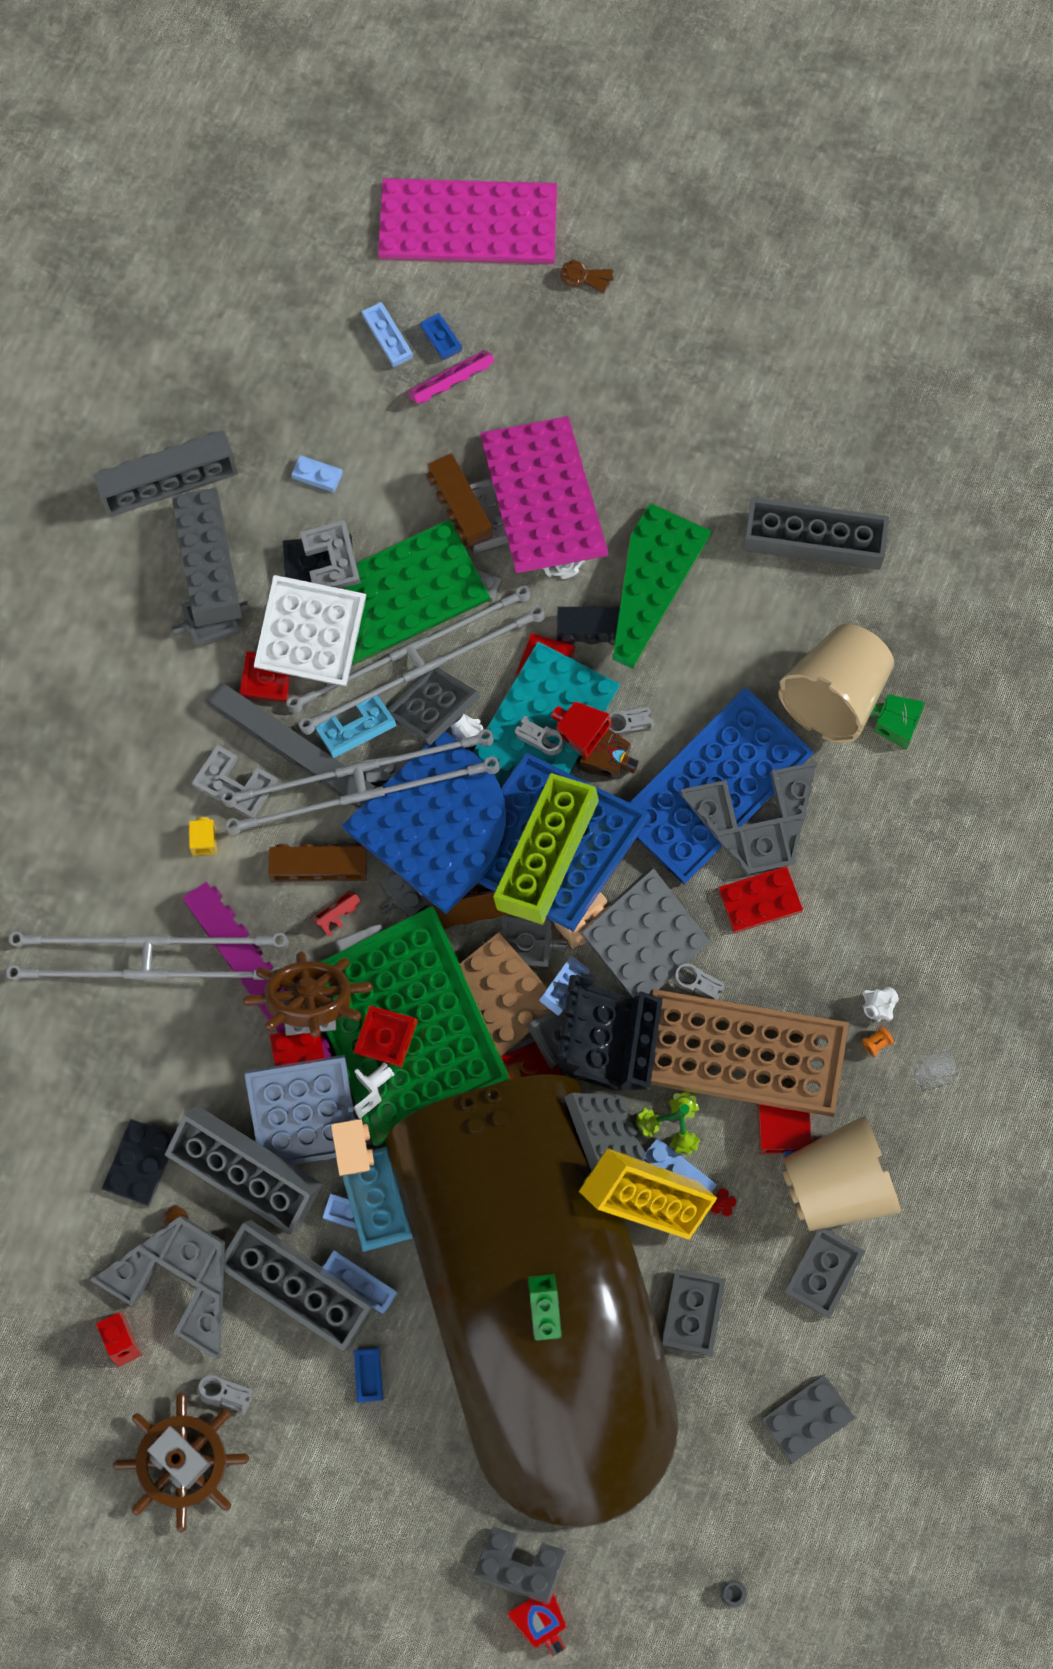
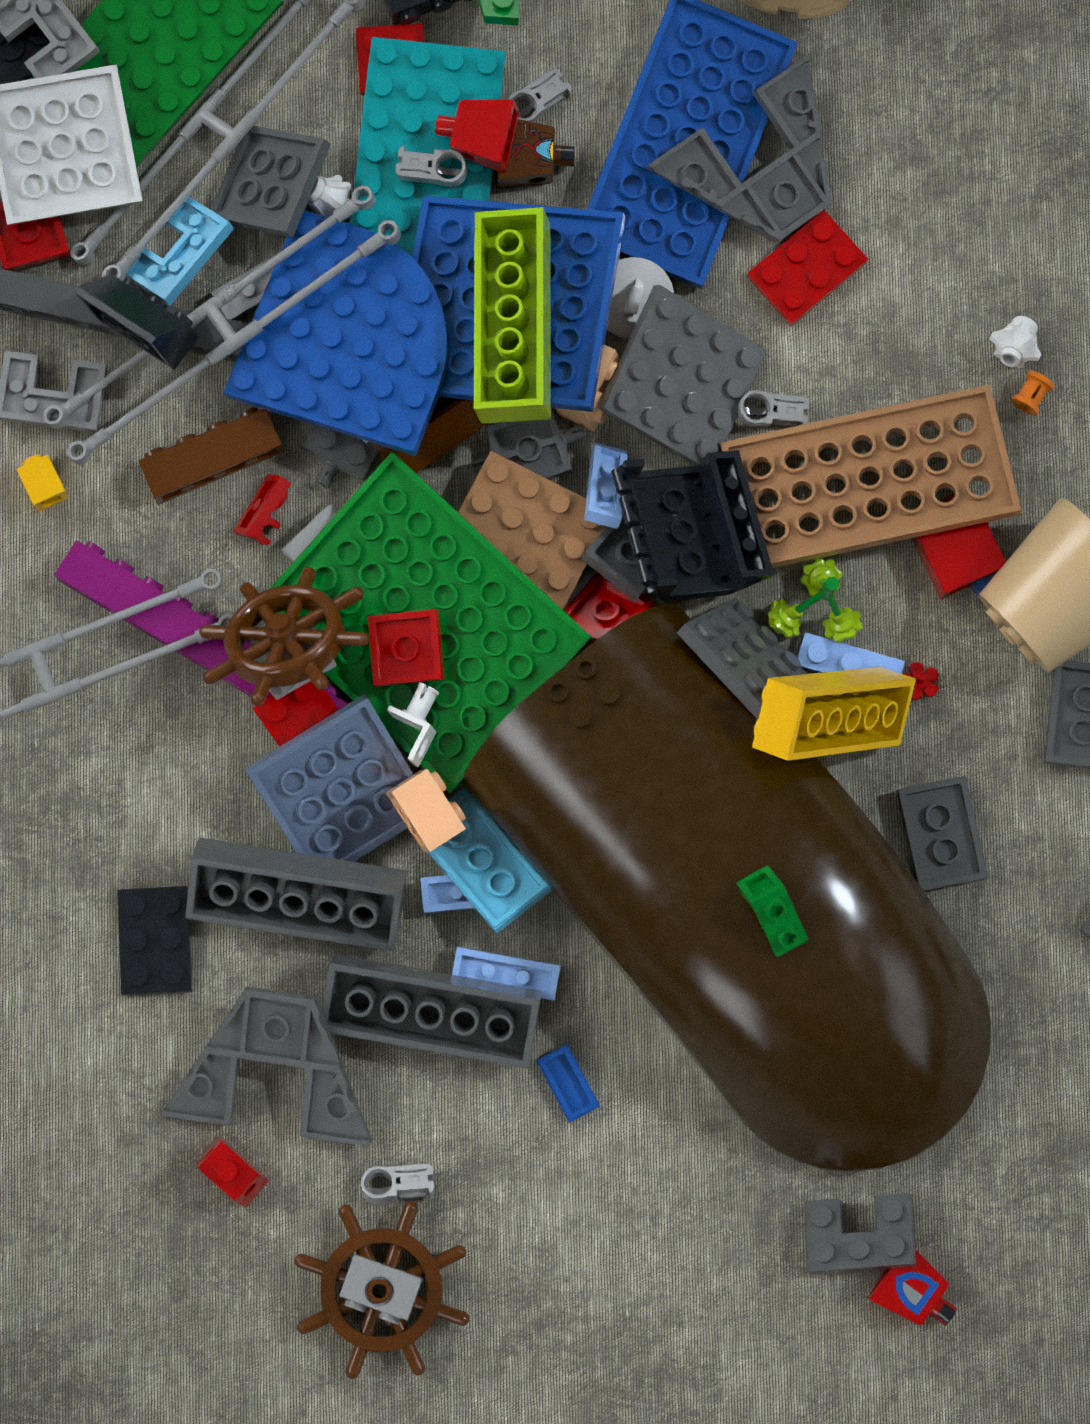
camera: 25 degrees left, 10 degrees up
(173, 1213) = (231, 989): reddish brown plate -> none
(308, 756) = (139, 318): none -> black slope
(633, 865) = (631, 290): none -> white shield

